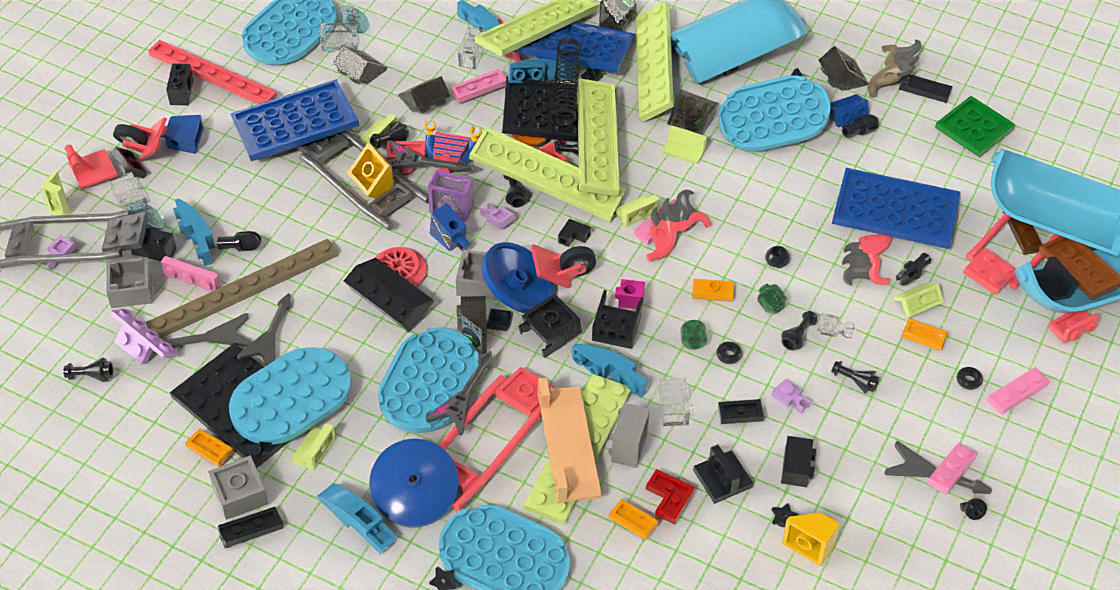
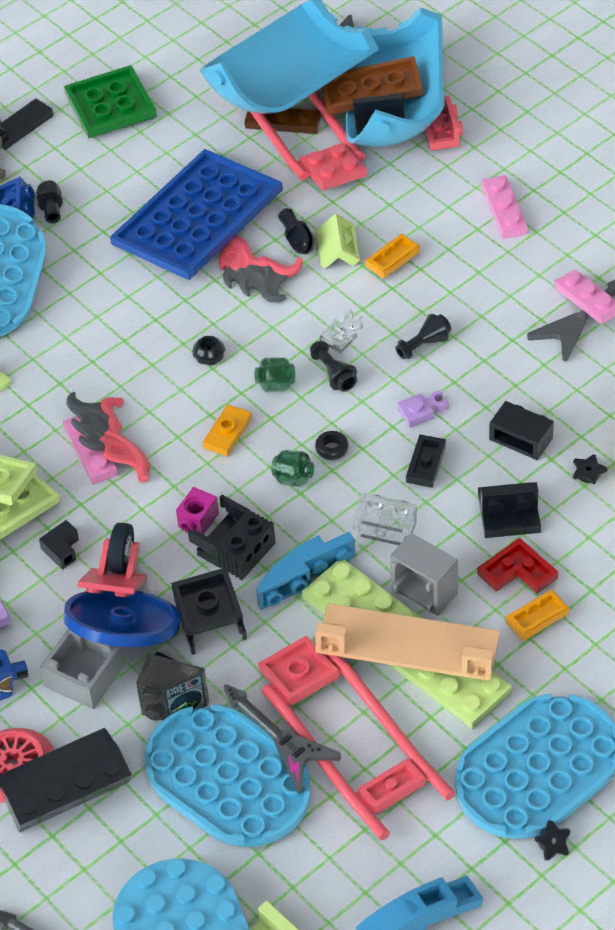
camera: 65 degrees left, 0 degrees up
(419, 502) = (397, 829): blue dish -> none
(637, 209) = (56, 464): yellowish green panel -> none
(967, 384) = (469, 247): black piece -> none

